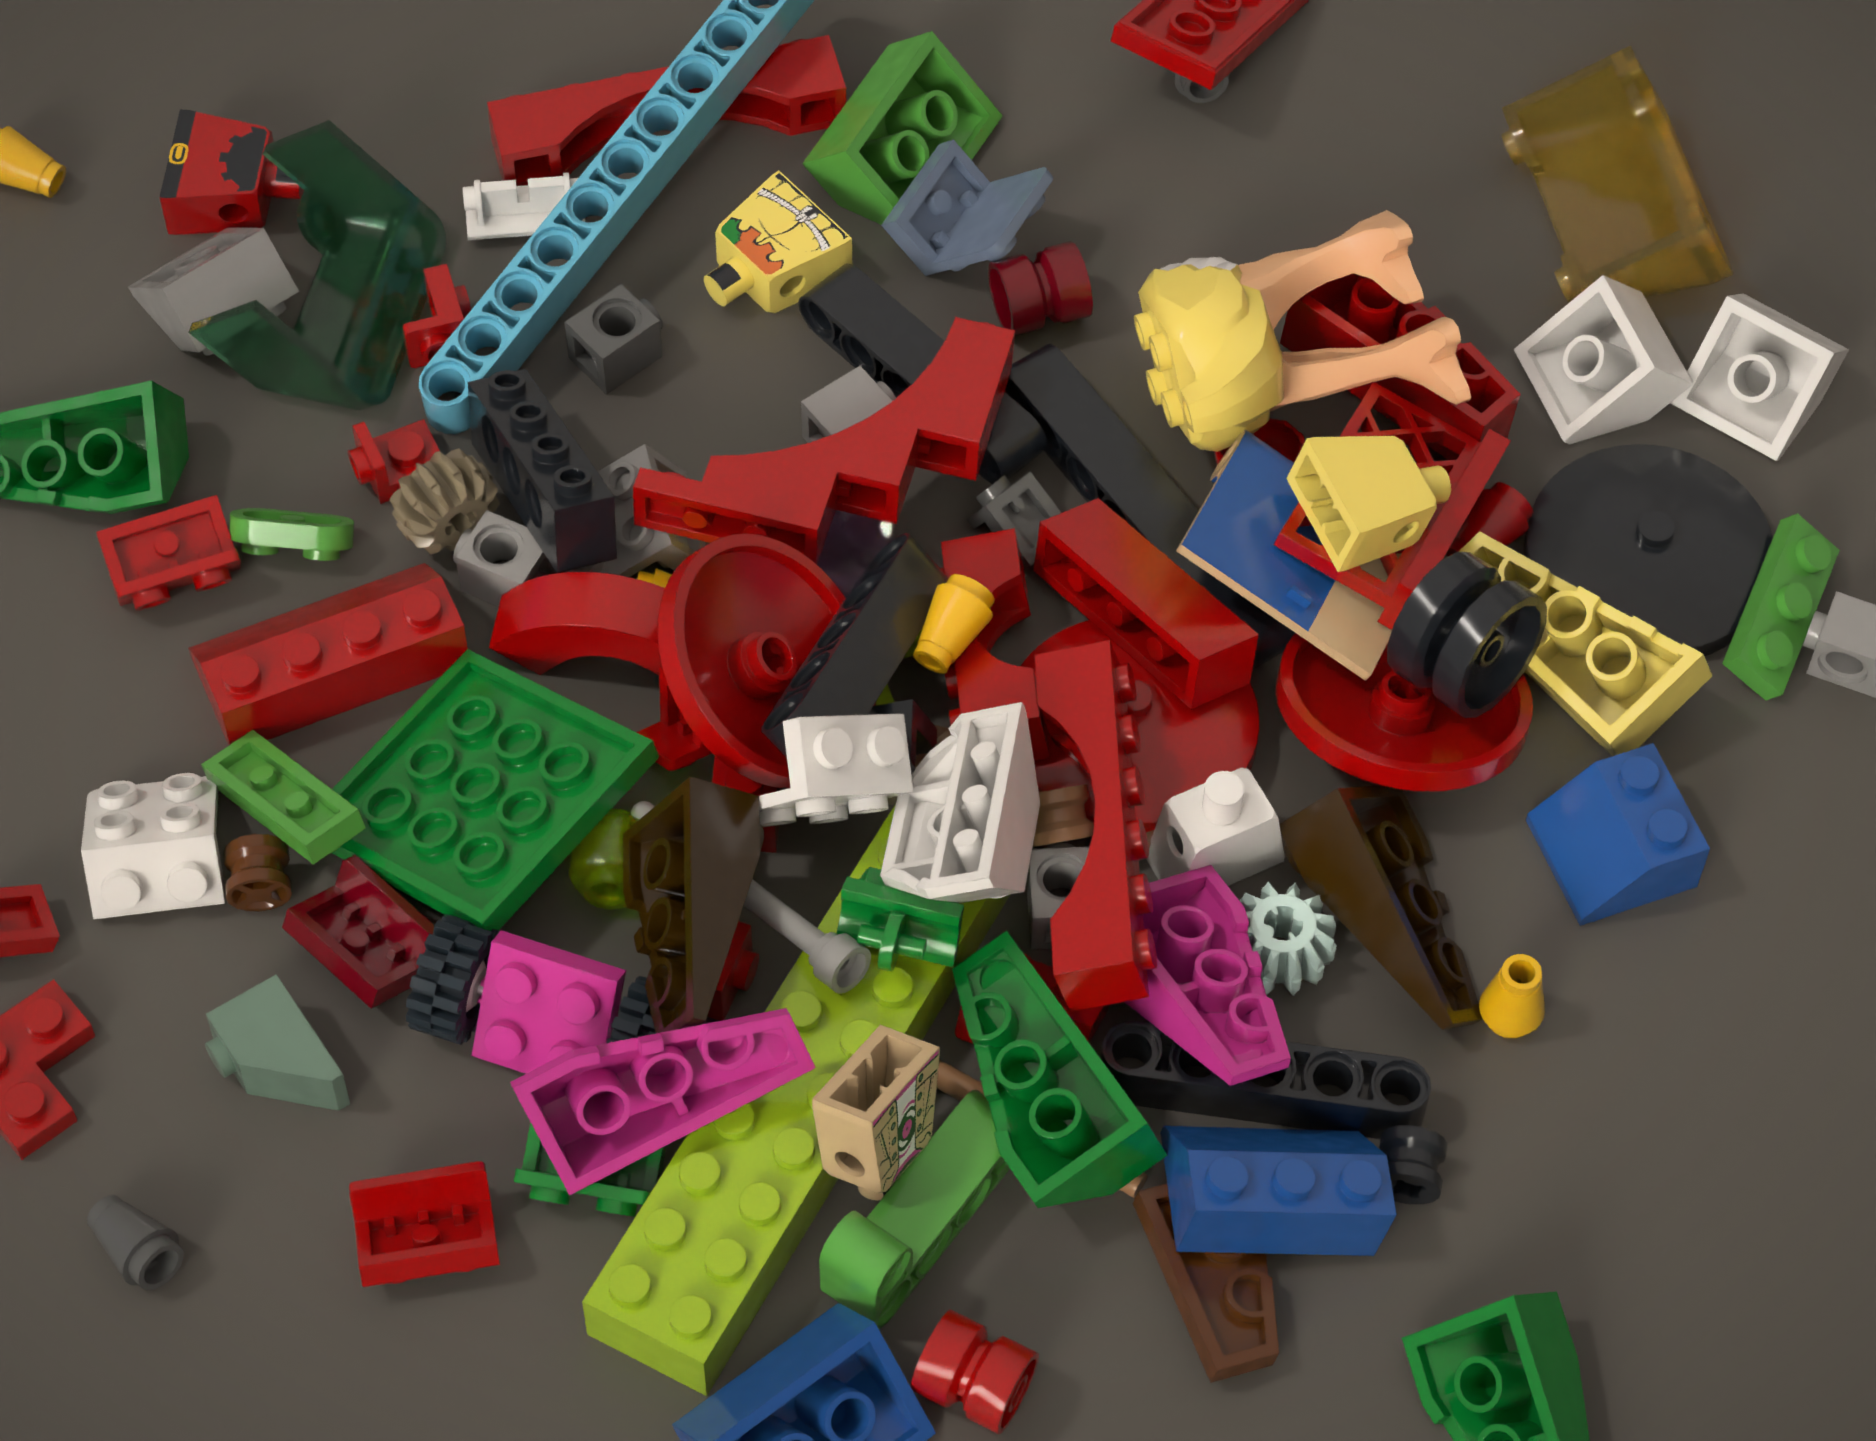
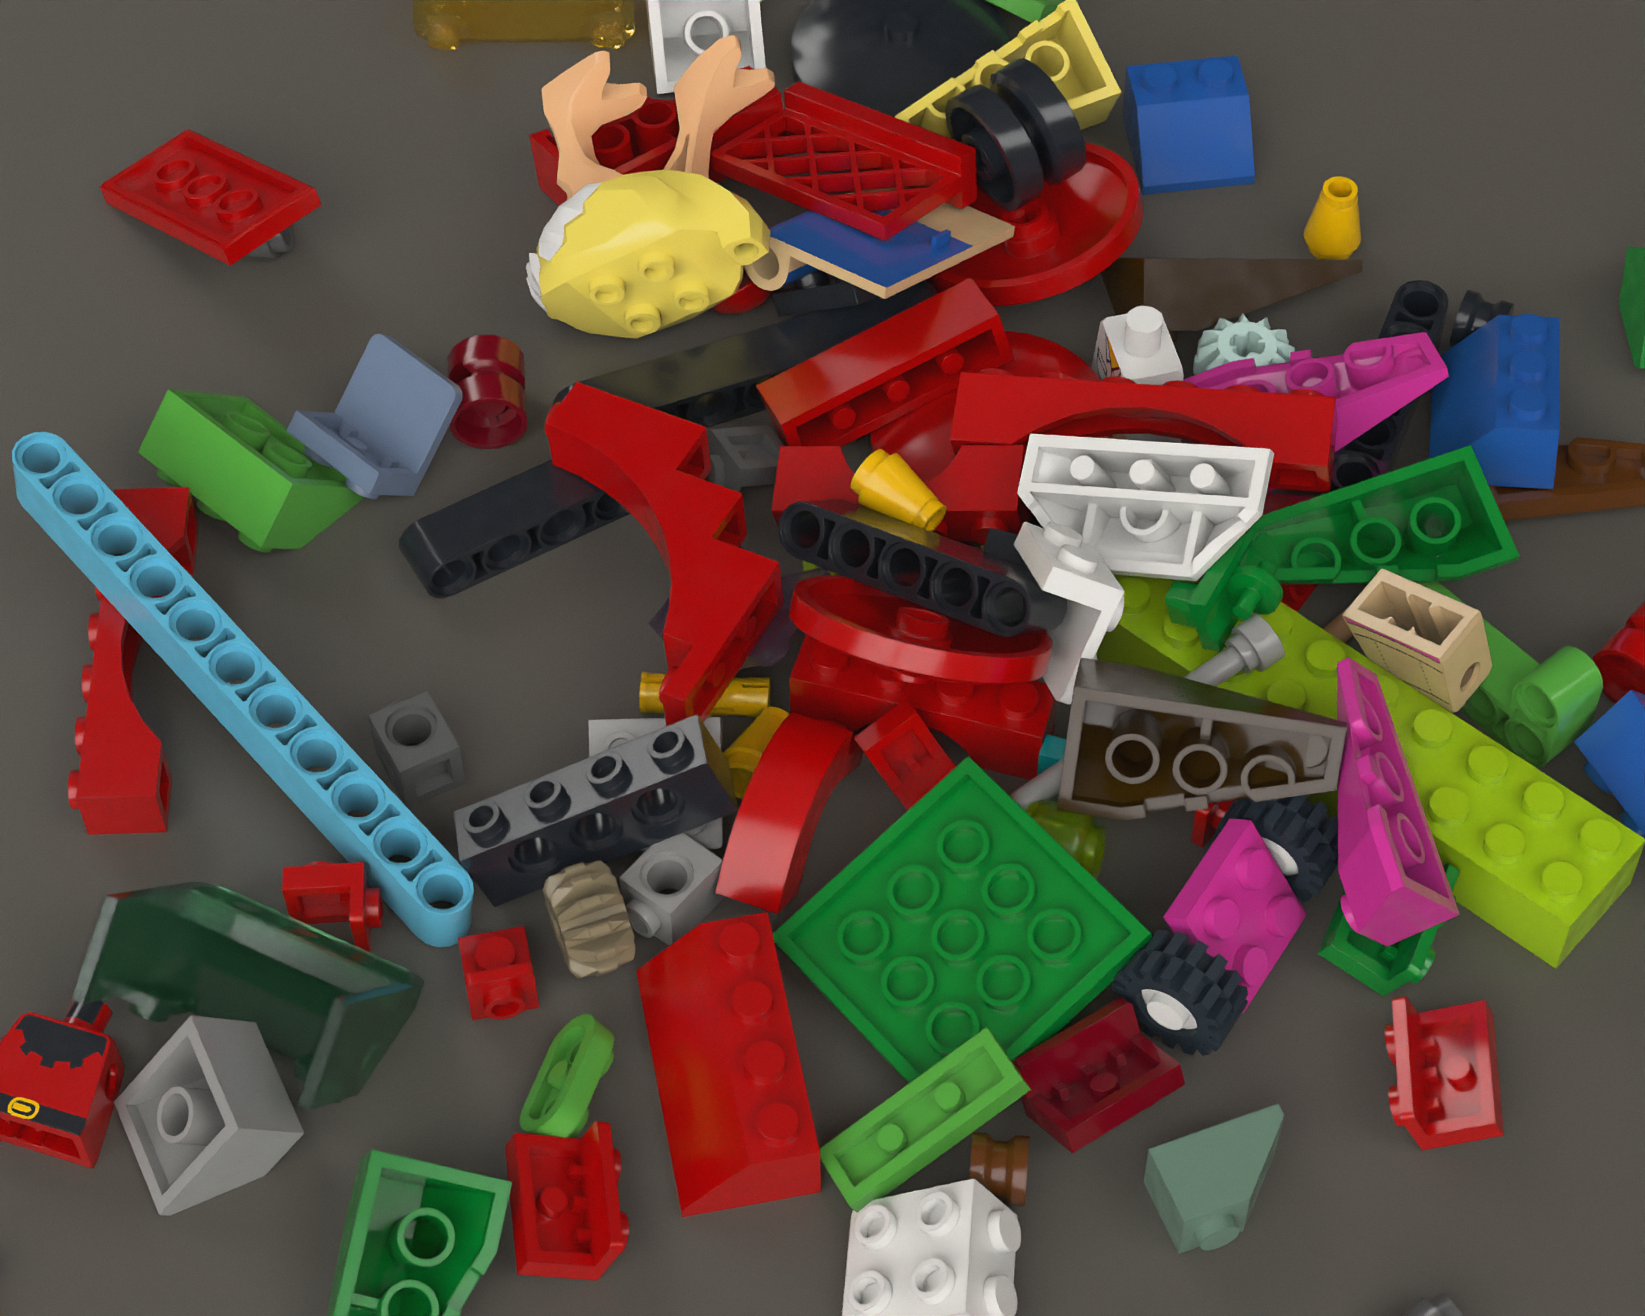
camera: 75 degrees left, 5 degrees down
(510, 210) = (208, 805): white hinge -> none
(776, 247) = (350, 592): light yellow torso -> none
(843, 404) = (587, 571): light grey brick -> none
(1365, 495) = (870, 159): light yellow torso -> none

